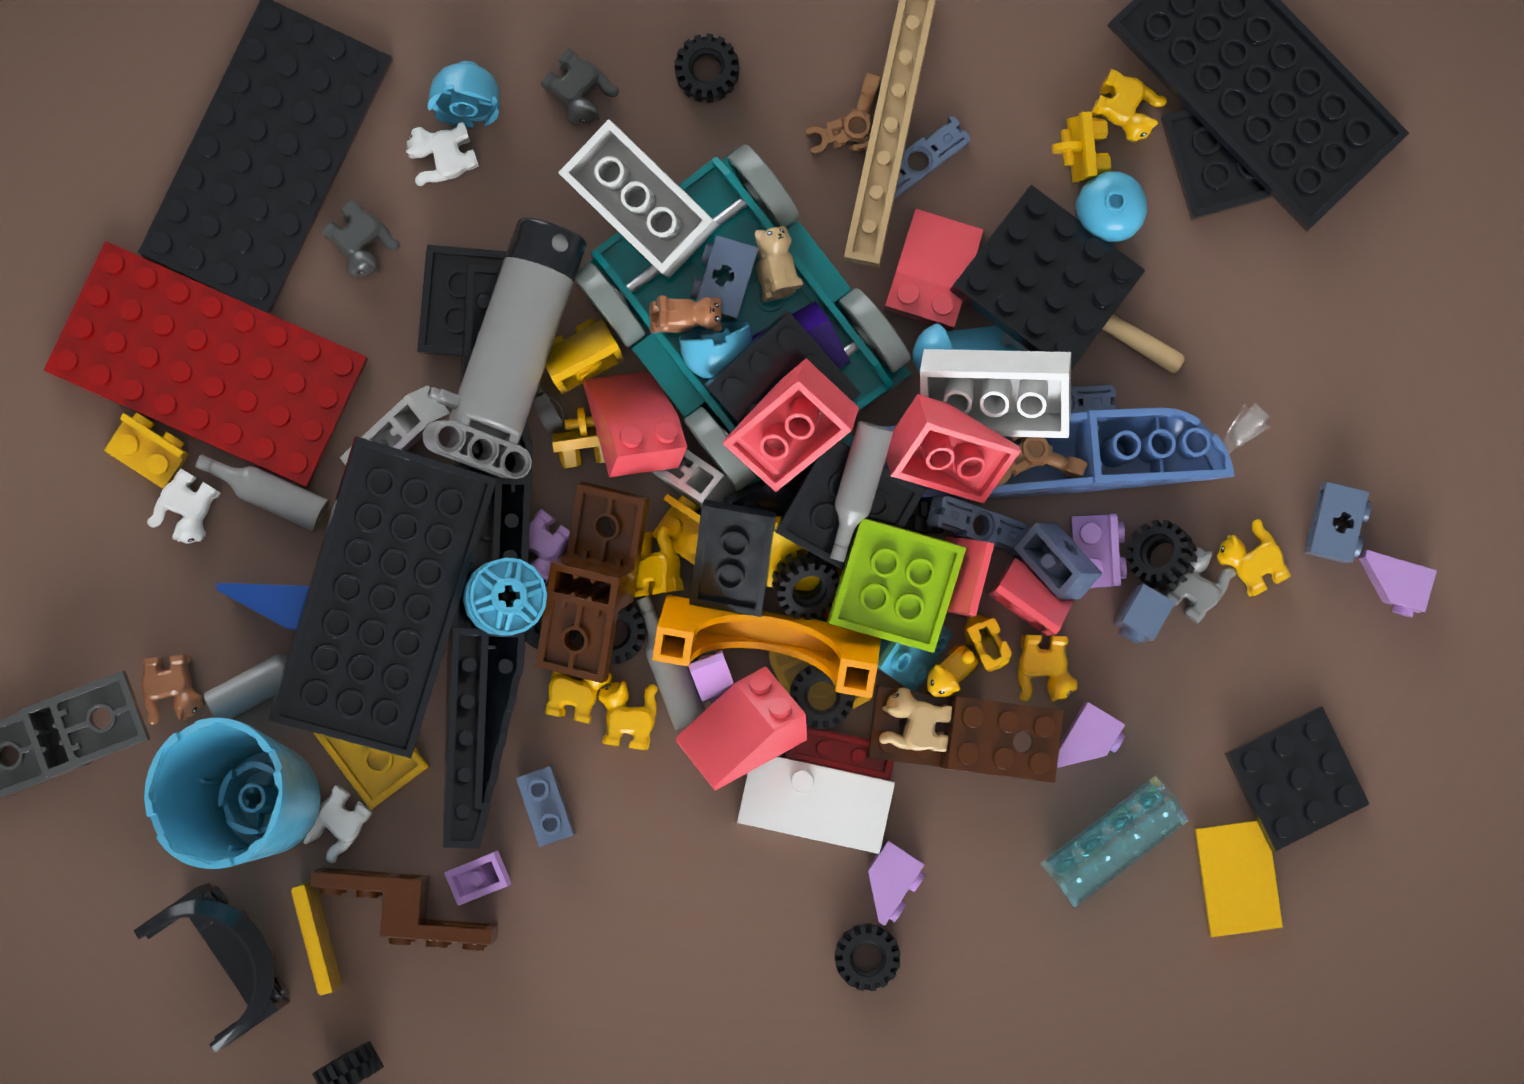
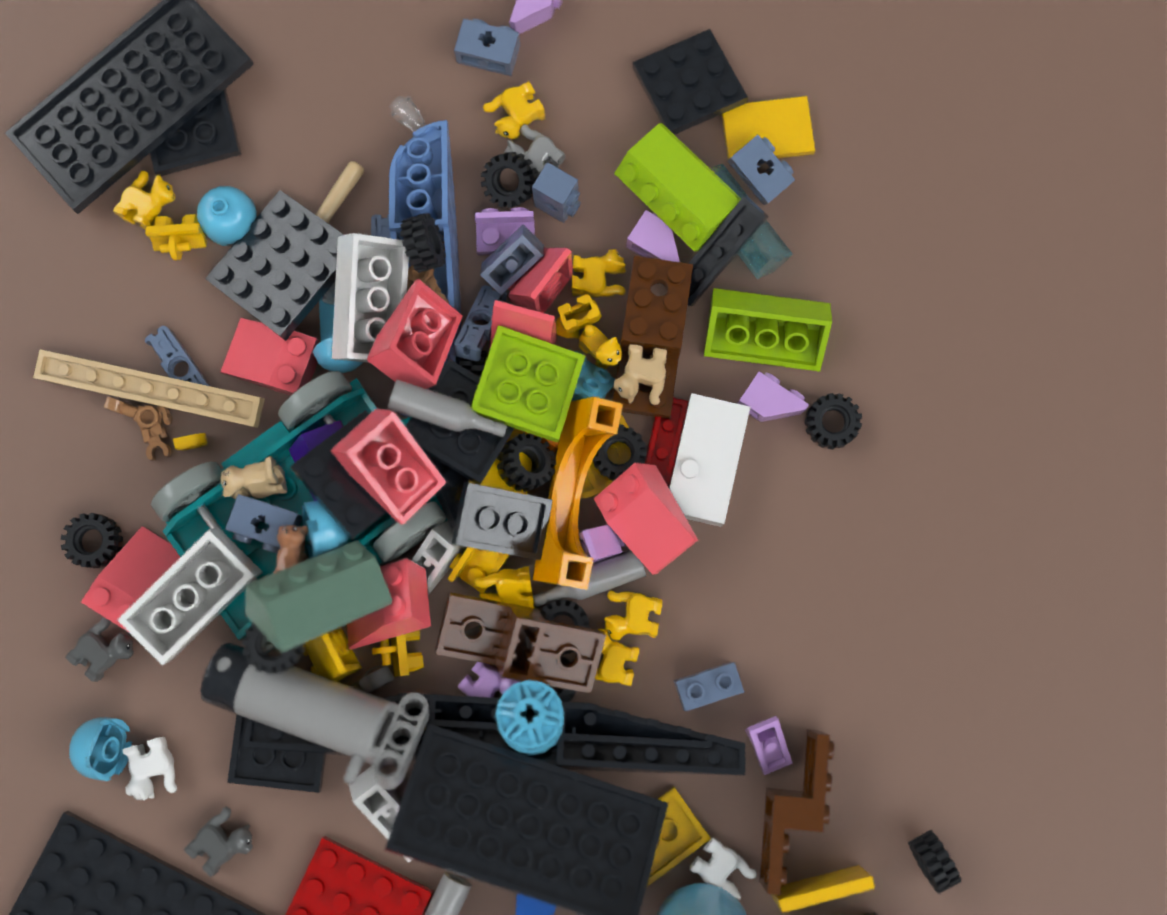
camera: 85 degrees left, 5 degrees down
(567, 285) = (263, 661): none -> black tyre
(638, 350) = (317, 596): none -> sand green slope
(663, 124) = (130, 574): none -> coral slope
(827, 179) = (190, 442): none -> yellow tile
(980, 876) = (767, 329): none -> lime slope
(1067, 454) = (423, 242): none -> black tyre
(1077, 820) = (724, 246): none -> black plate
(1152, 764) = (677, 186): none -> lime slope
(1161, 875) = (763, 185): none -> sand blue brick

